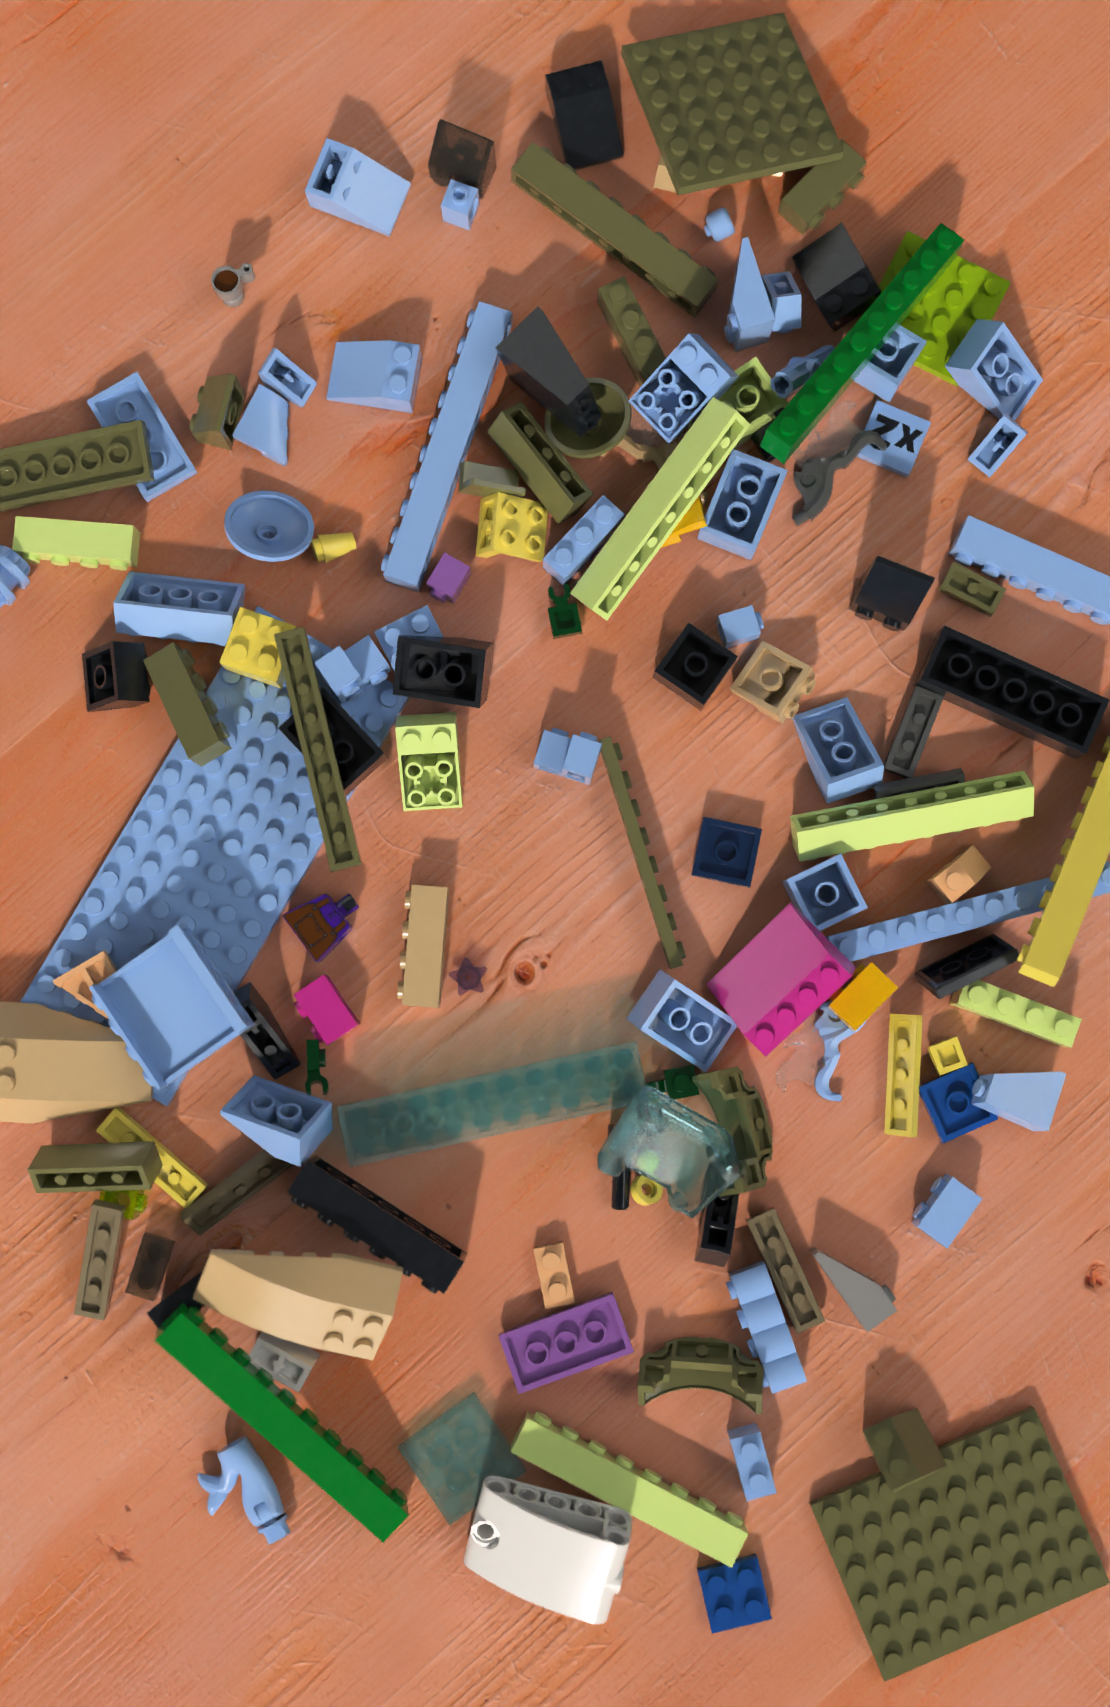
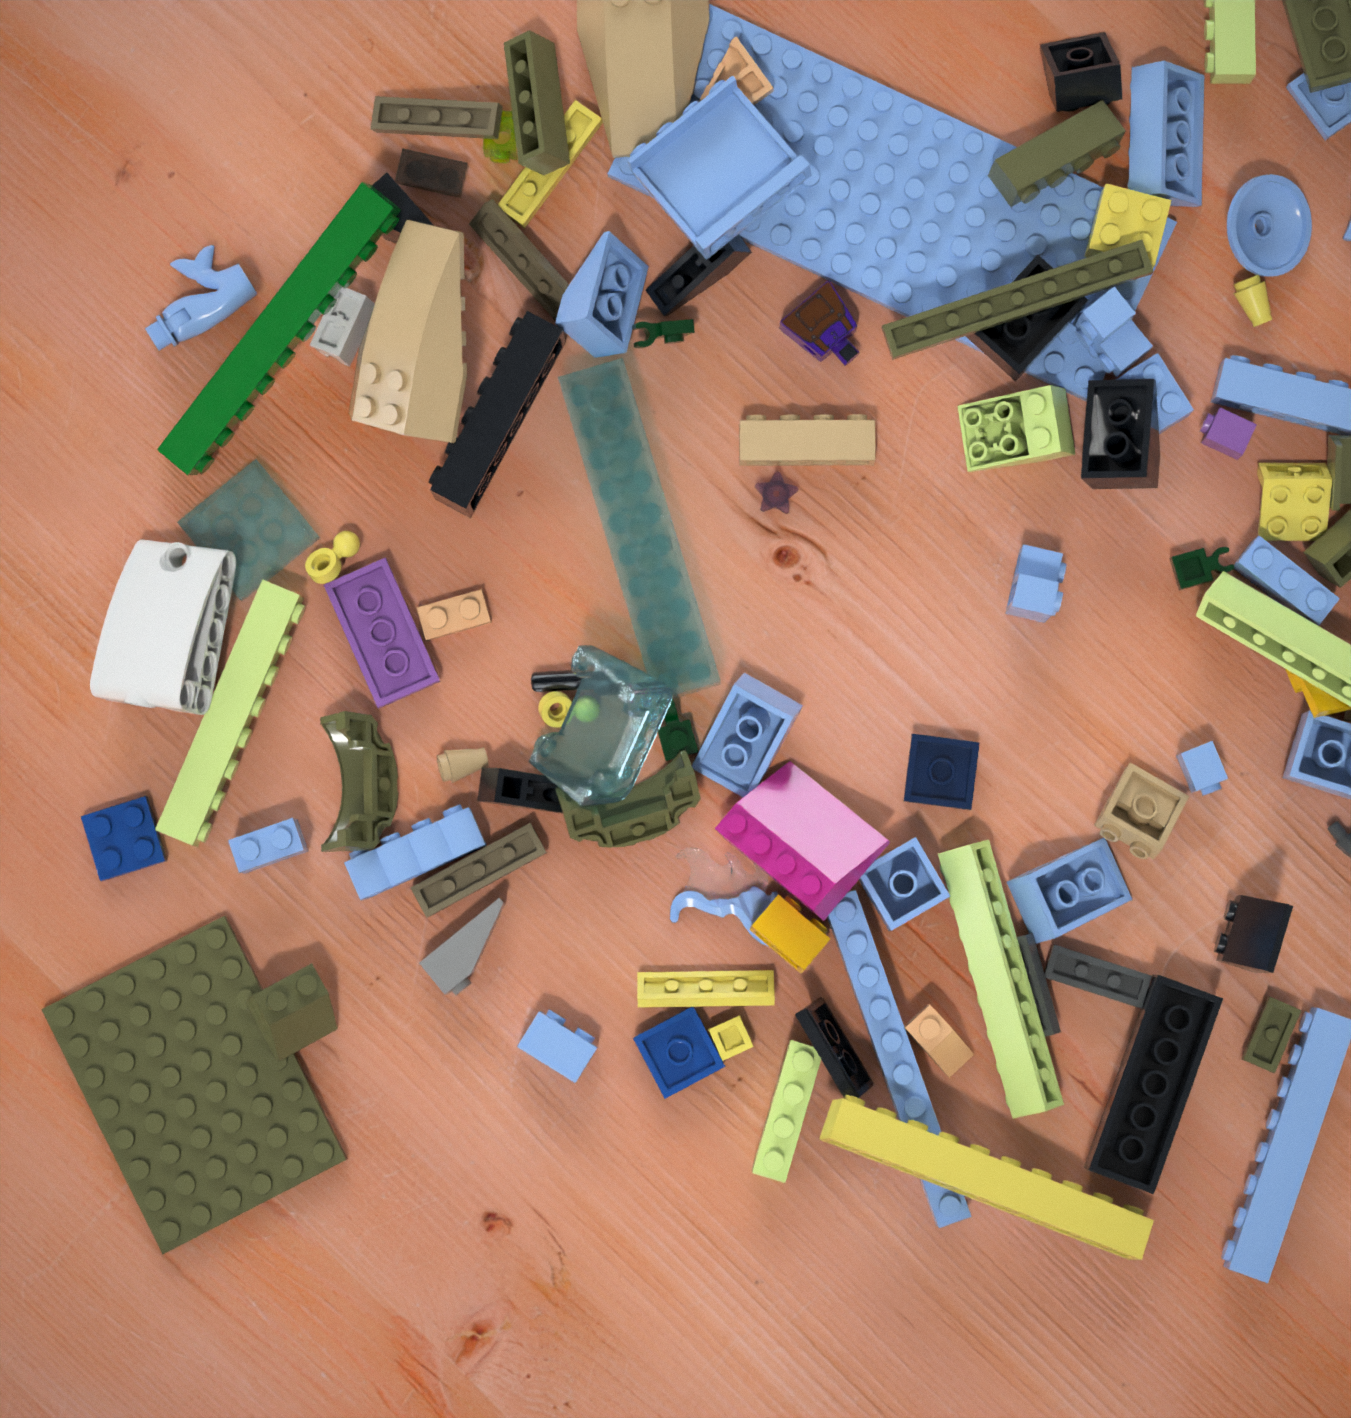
camera: 90 degrees right, 0 degrees up
(326, 1010) = (727, 338): dark pink brick -> none
(499, 1389) = (325, 563): none -> light yellow plate
(646, 865) = (919, 681): olive plate -> none
(688, 1279) = (460, 763): none -> tan cone
(694, 666) = (1150, 719): black brick -> none
(1020, 1097) = (692, 1119): light blue slope -> none

